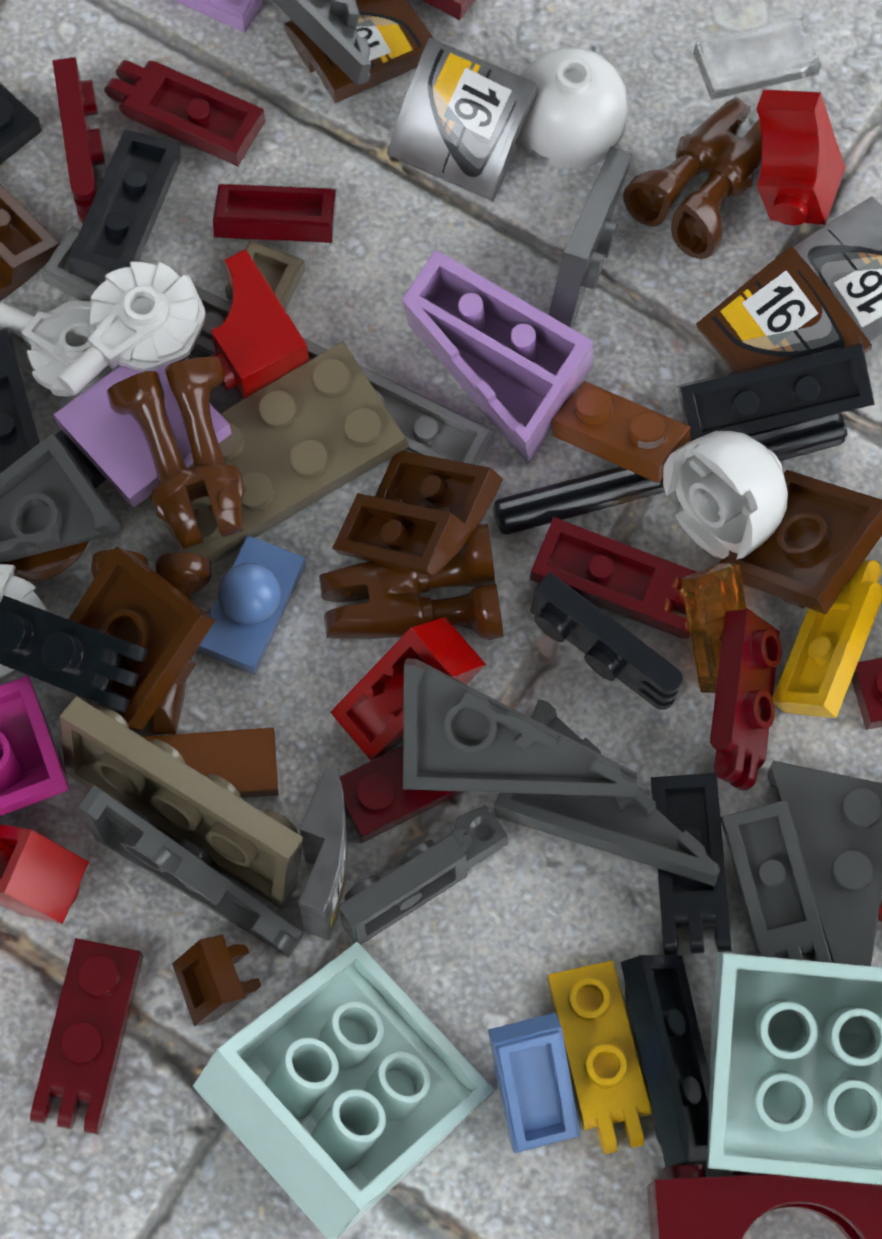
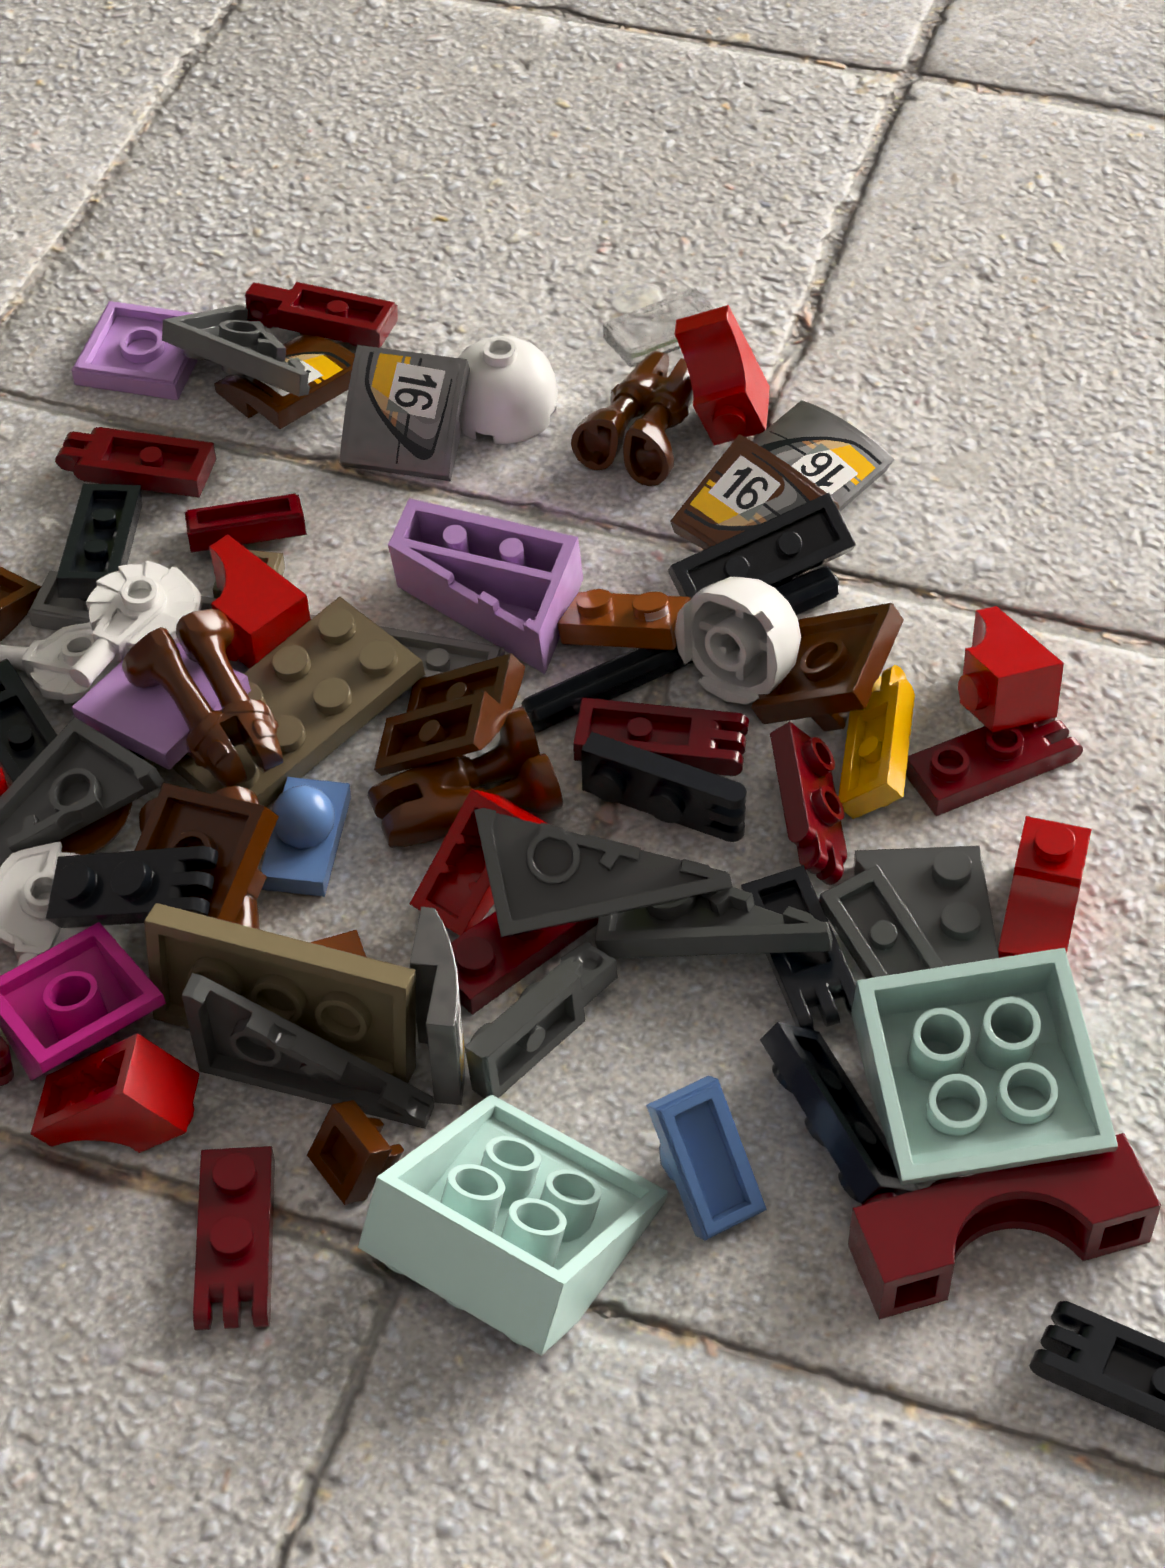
camera: 10 degrees left, 20 degrees down
(82, 146) = (44, 505): dark red hinge -> none
(590, 239) = (551, 475): dark grey wing -> none
(600, 1052) = (772, 1136): yellow hinge -> none
(706, 600) = (749, 730): clear orange tile -> none

